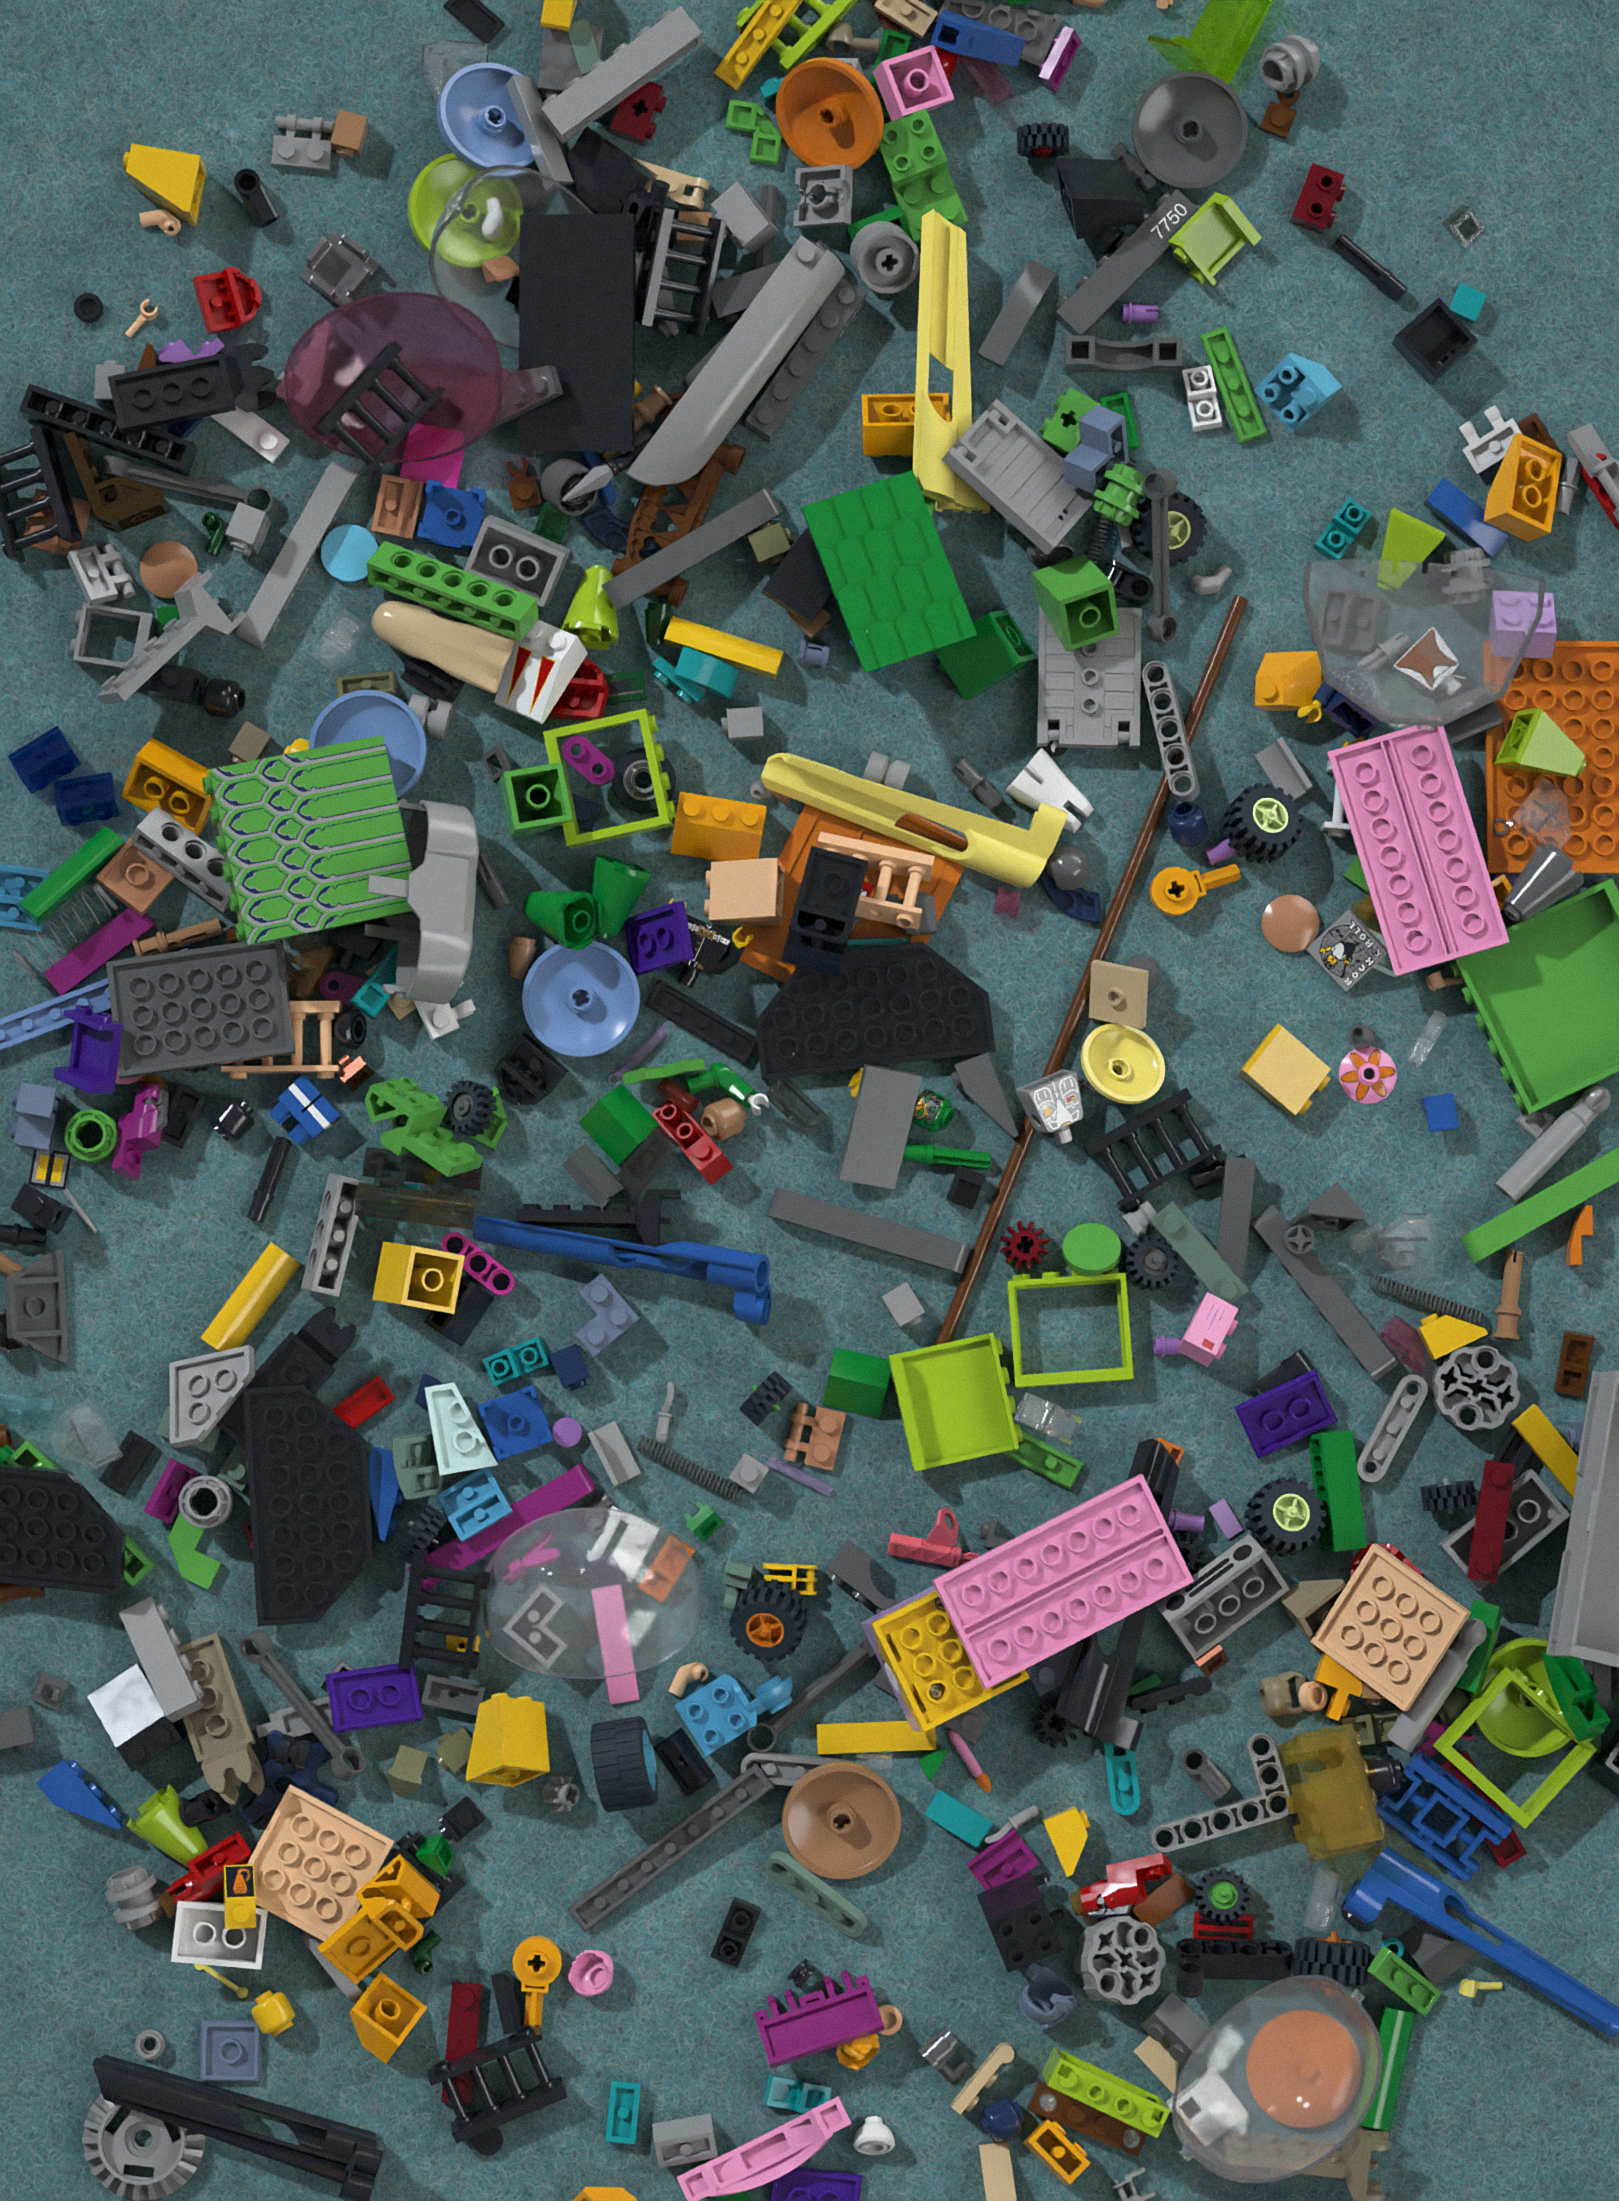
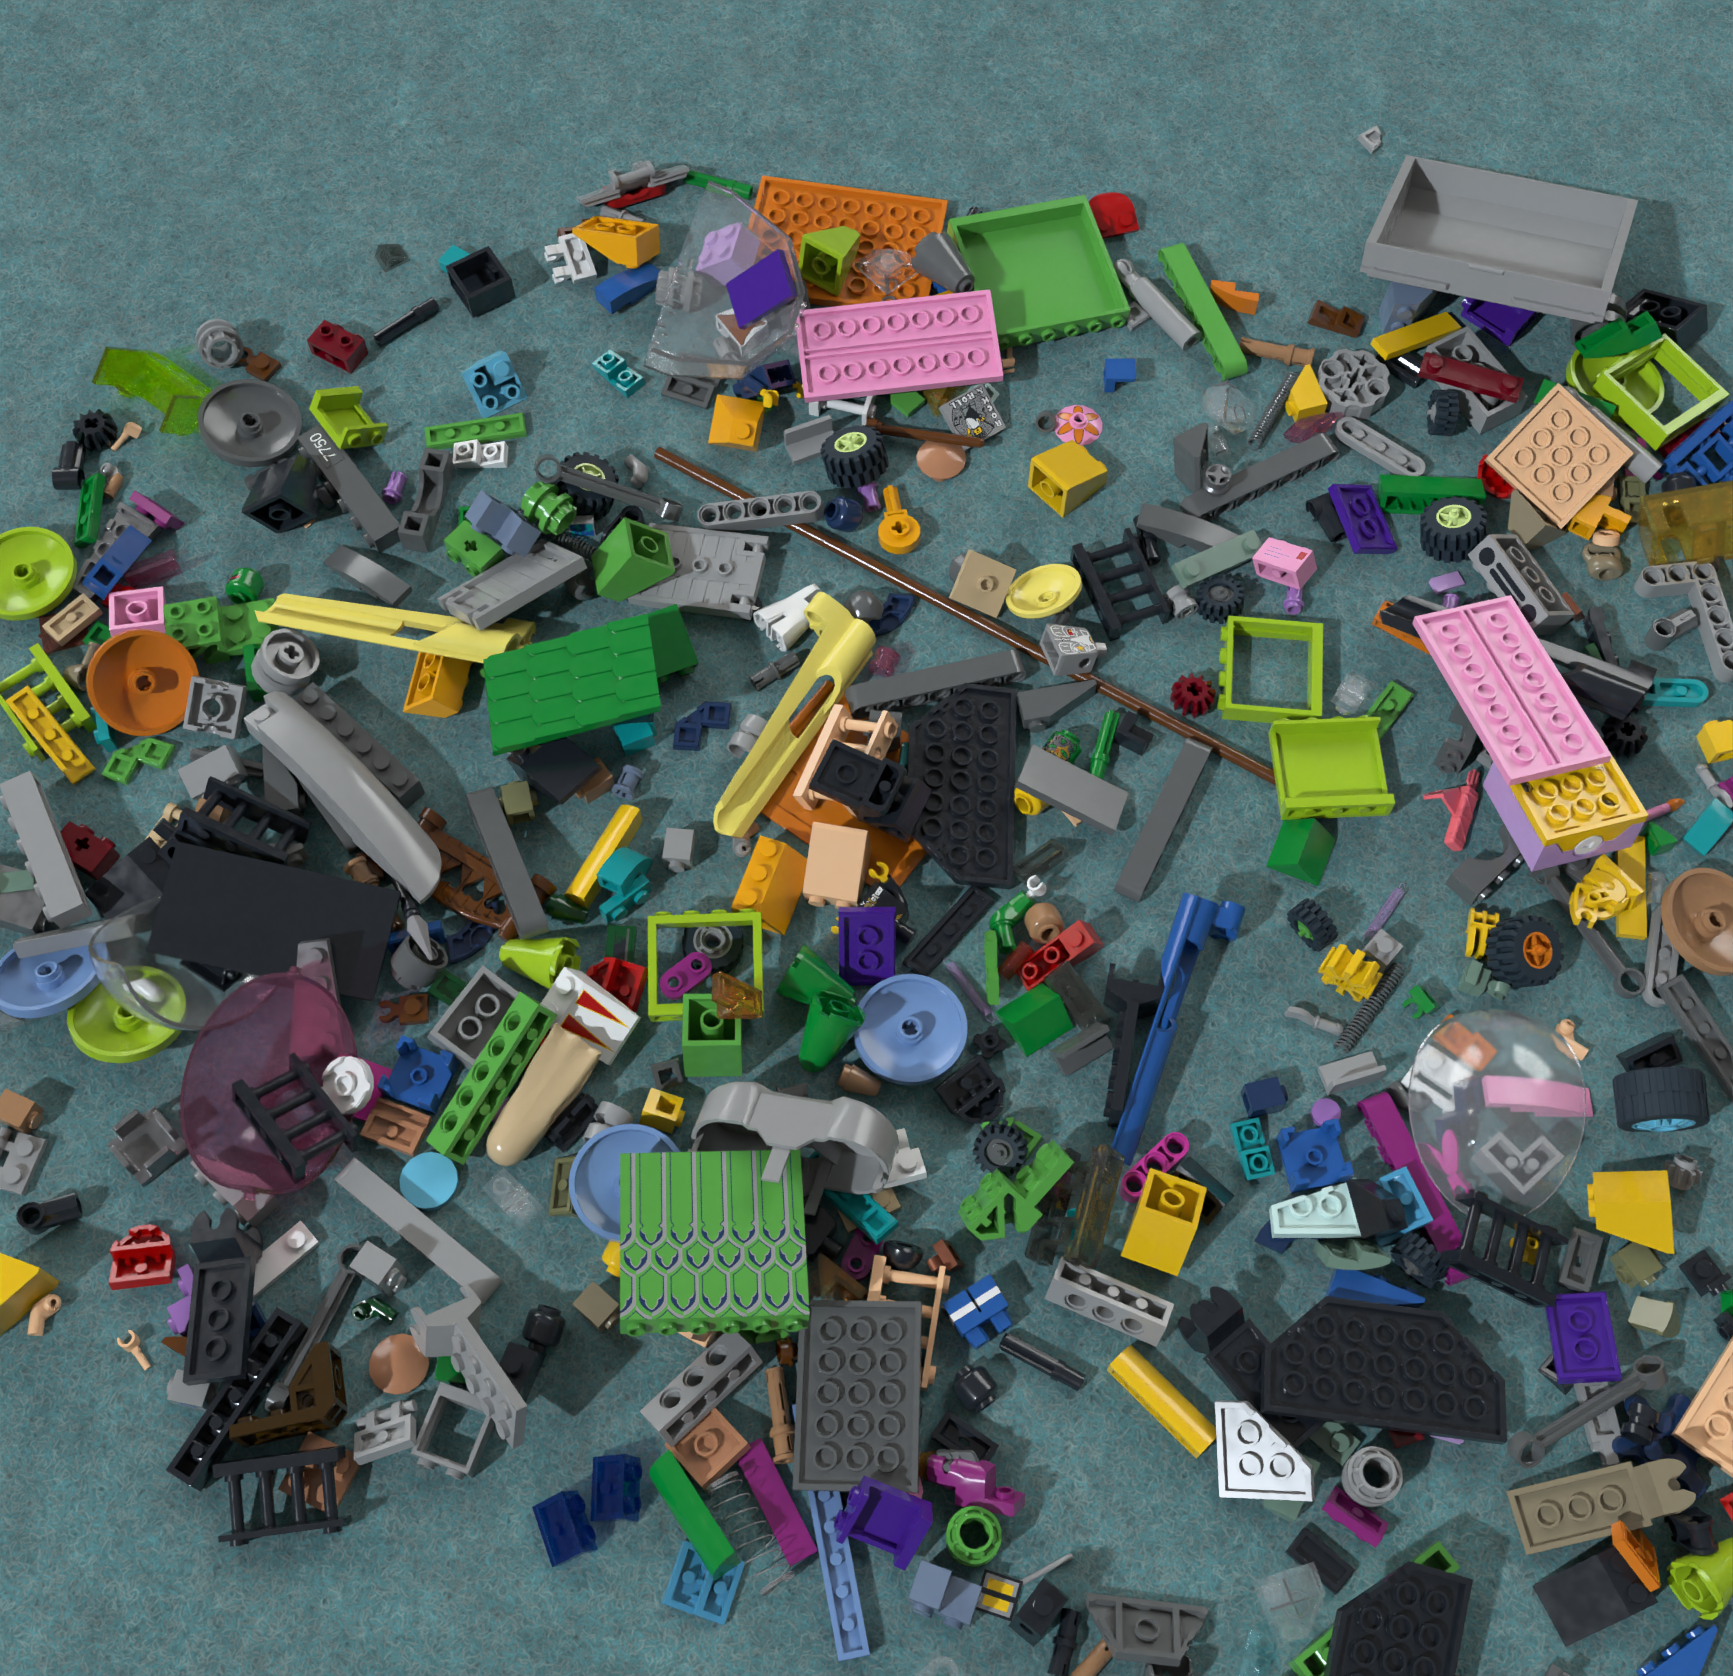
camera: 75 degrees left, 20 degrees down
(88, 308) = (107, 1404): black tile -> none
(162, 1660) = (1537, 1550): light grey brick -> none
(169, 1751) = (1638, 1553): none -> orange tile
(170, 782) = (619, 1391): light orange slope -> none
(191, 1563) = (1432, 1506): bright green tile -> none
(365, 1402) = (1278, 1301): red tile -> none
(424, 450) = (348, 1083): none -> white tile
(464, 760) = (662, 1111): none -> yellow brick
(466, 1484) = (1375, 1209): none -> black slope
(499, 269) = (194, 987): nougat slope -> none
(559, 815) = (735, 998): none -> clear orange slope
(585, 1090) = (986, 1049): none -> black plate
(612, 1317) = (1220, 1051): sand blue brick -> none
(716, 1441) = (1350, 972): none -> yellow gear
(727, 1710) = (1606, 1008): dark azure brick -> none
(823, 1439) = (1352, 888): nougat plate -> none
(853, 1700) = (1603, 893): none -> yellow piece
(893, 706) = (708, 715): none -> dark blue tile
(903, 1306) = (1236, 799): light grey brick -> none
(978, 184) = (244, 585): none -> green head
(988, 962) = (933, 683): none -> dark grey beam
(1043, 140) = (222, 529): black wheel -> none
(1091, 1249) = (1203, 641): bright green tile -> none
(1315, 841) = (925, 435): none -> reddish brown piece
(1408, 539) = (635, 320): lime slope -> none
(1427, 1038) = (1054, 376): clear axle -> none
(1450, 674) = (761, 289): none -> dark purple tile

